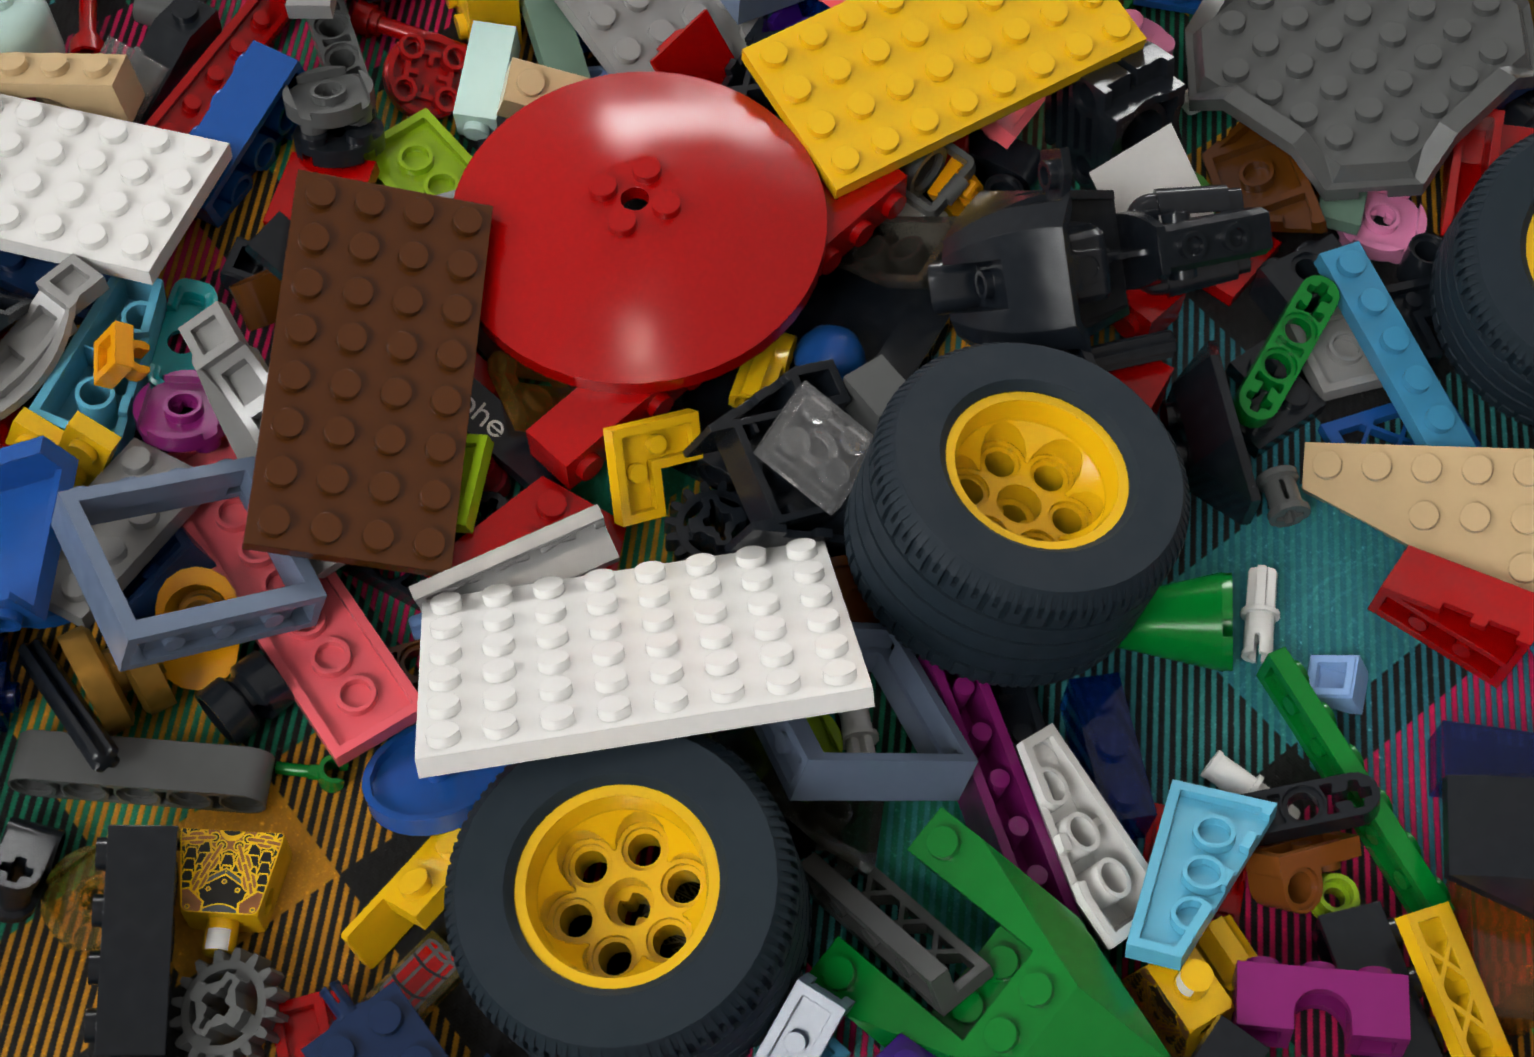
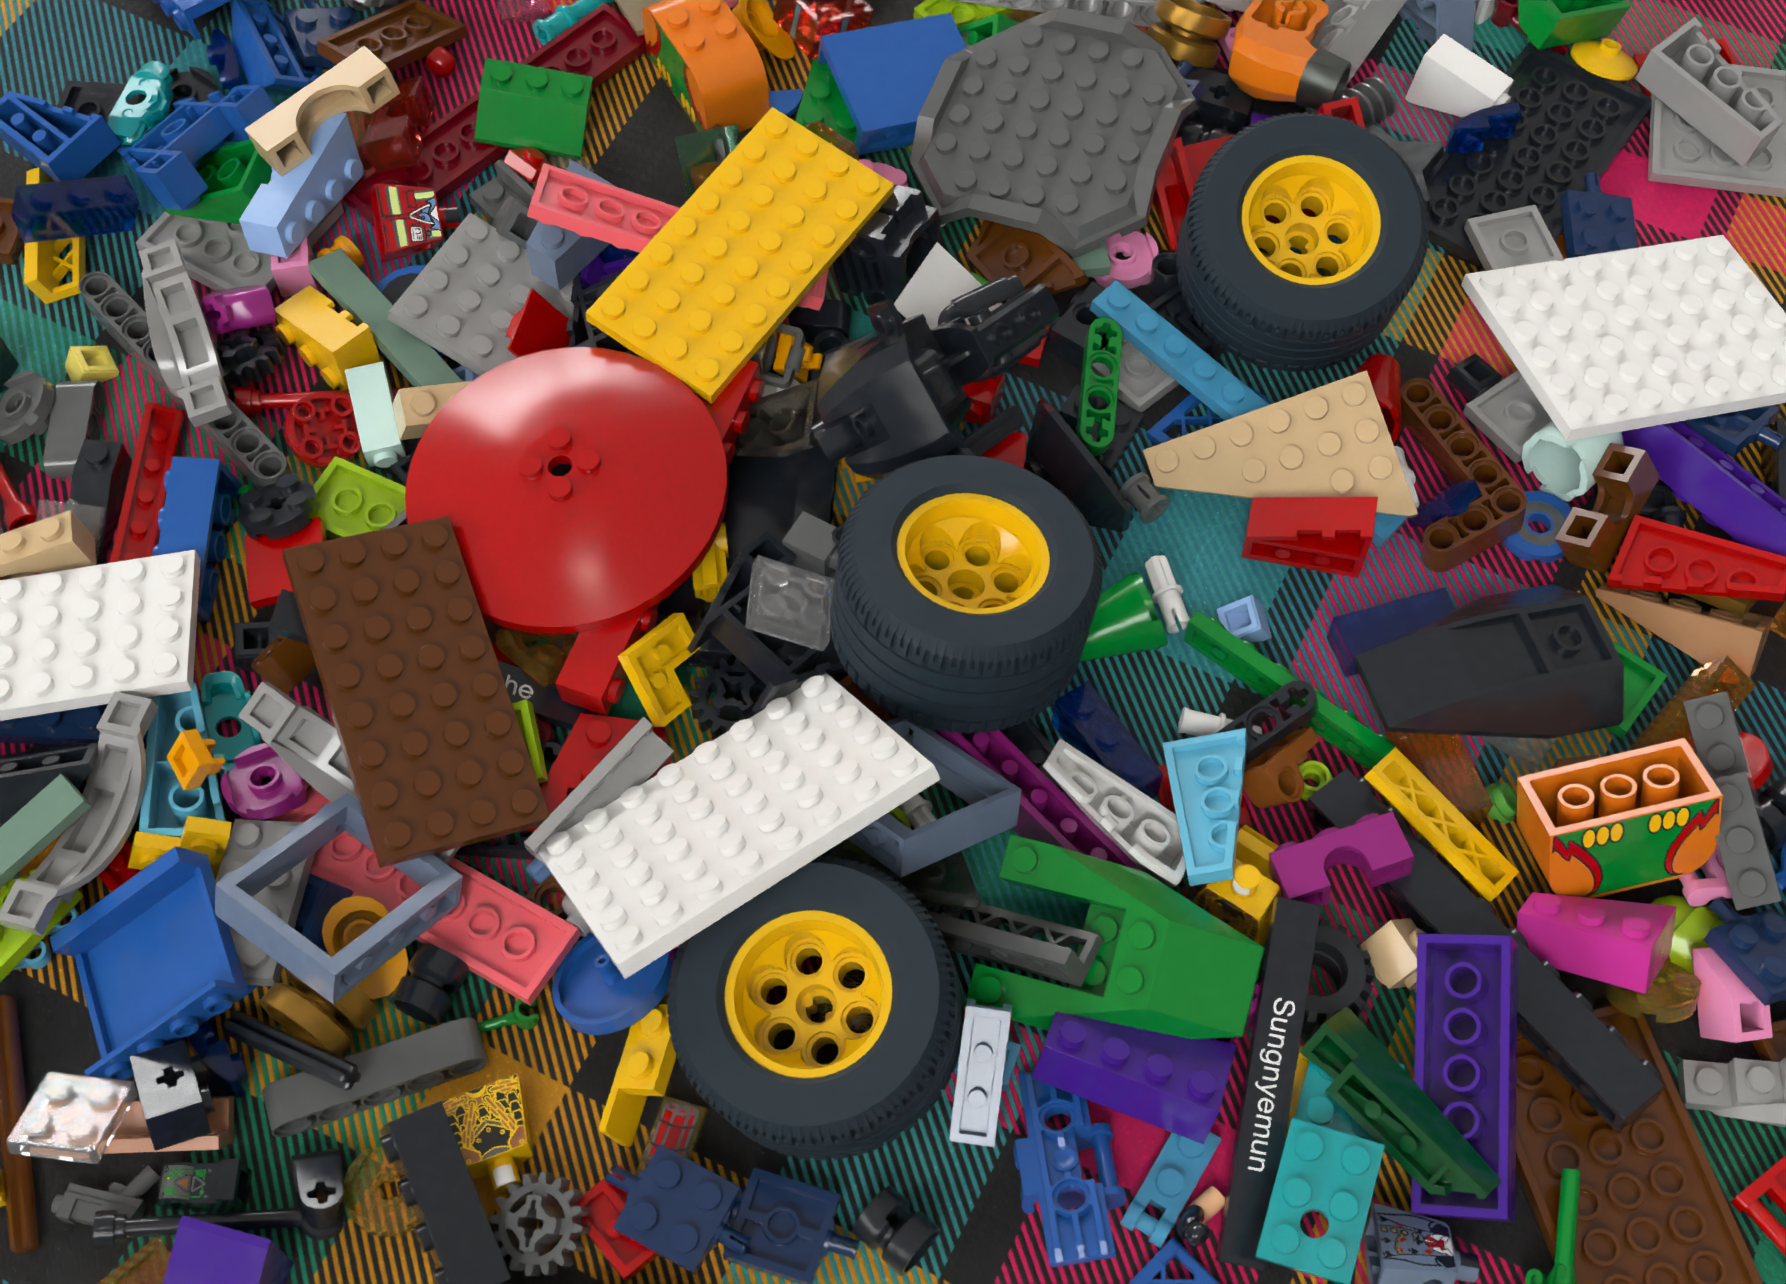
camera: 20 degrees left, 0 degrees up
(329, 99) = (277, 480): dark grey plate -> none
(828, 343) = (753, 520): blue hair -> none

